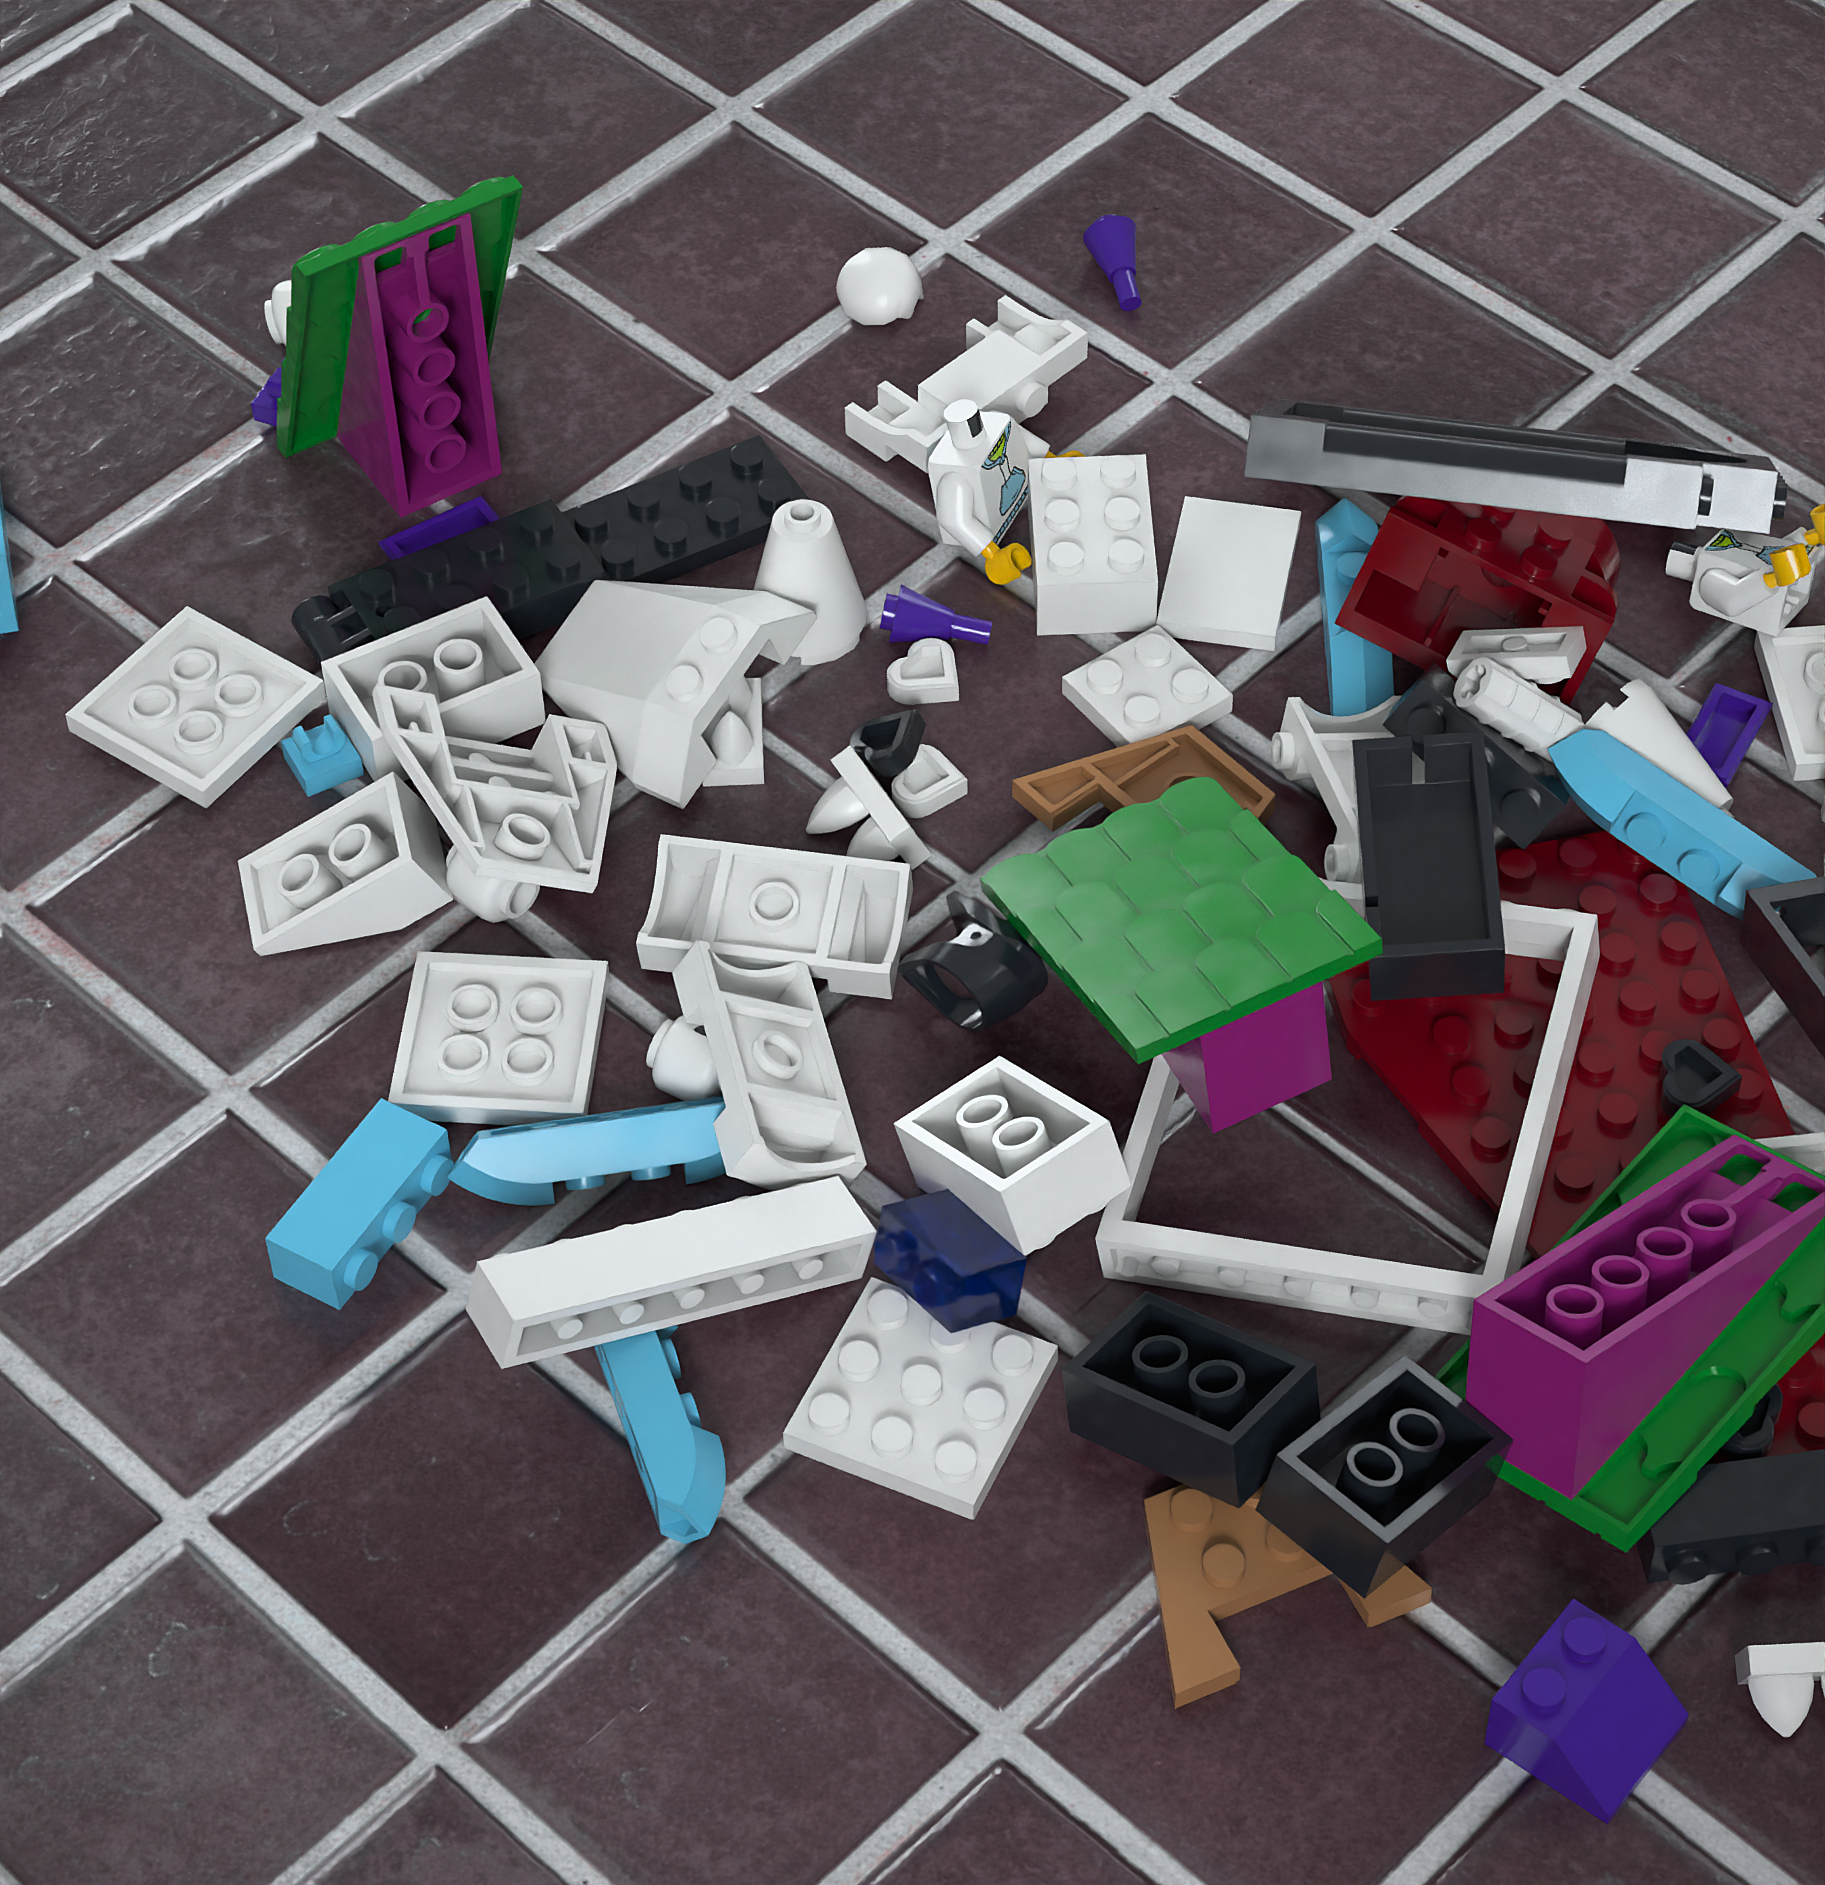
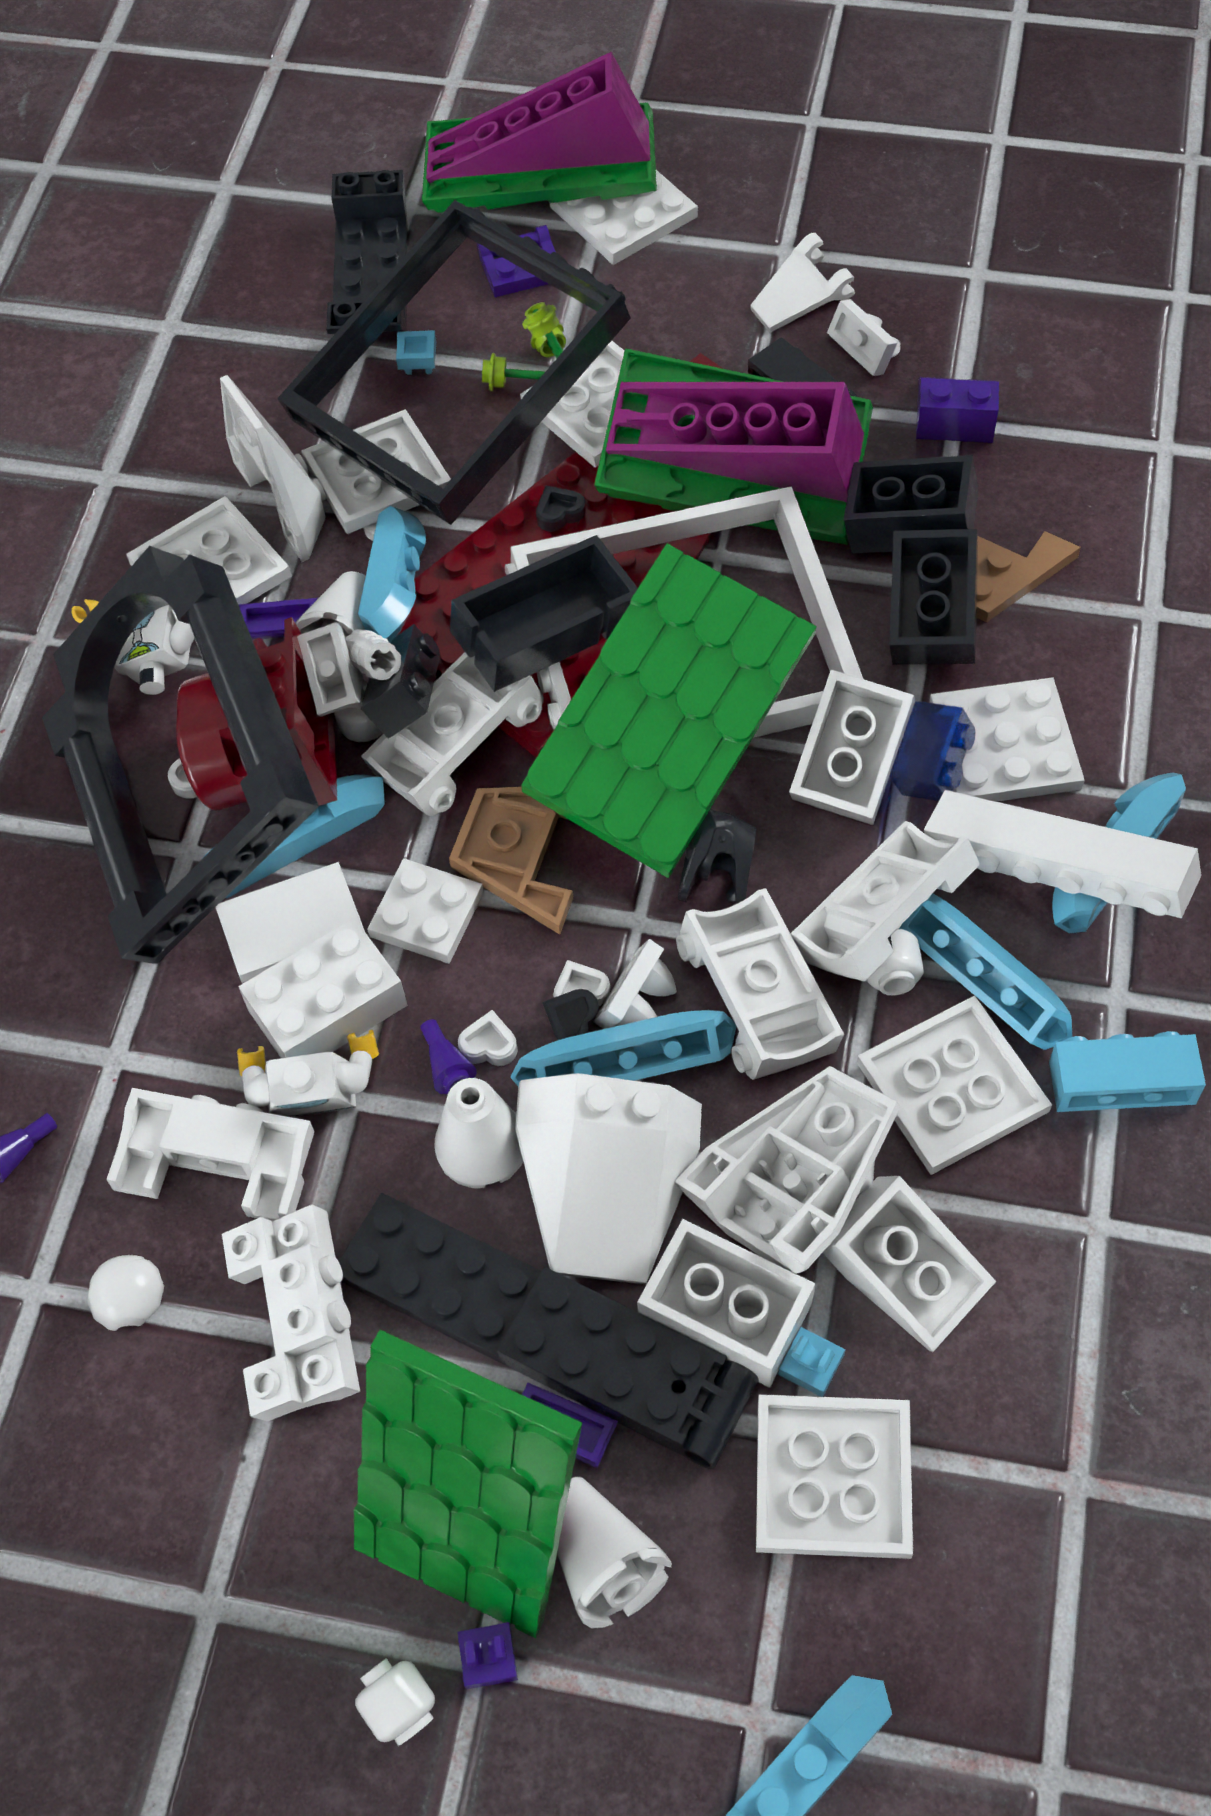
camera: 120 degrees left, 10 degrees up
(297, 489) = (606, 1558): none -> white cone
(741, 392) = (304, 1308): none -> white bracket
(797, 753) = (635, 1048): none -> medium azure brick

